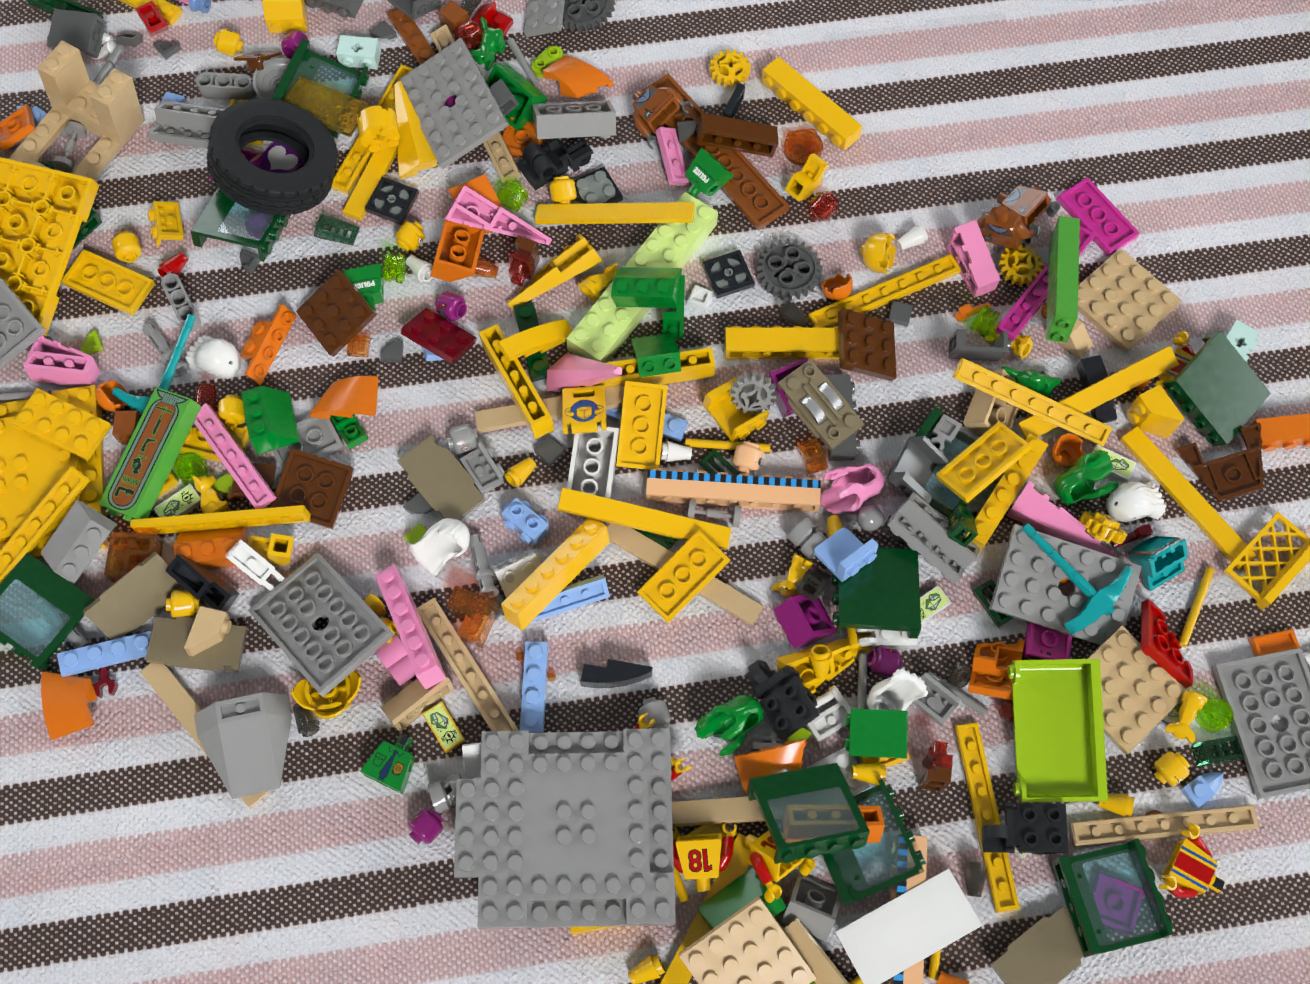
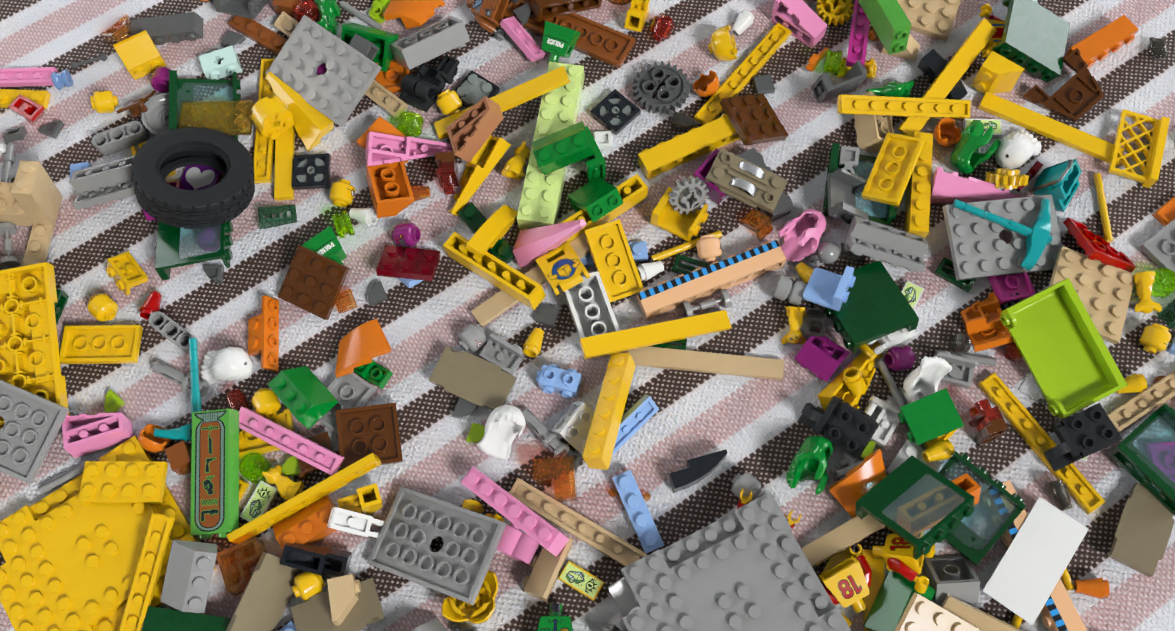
camera: 20 degrees left, 0 degrees up
(571, 227) = (474, 128): none -> nougat wedge
(683, 576) = (710, 365): yellow tile -> none
(962, 522) = (902, 224): dark green leg -> none

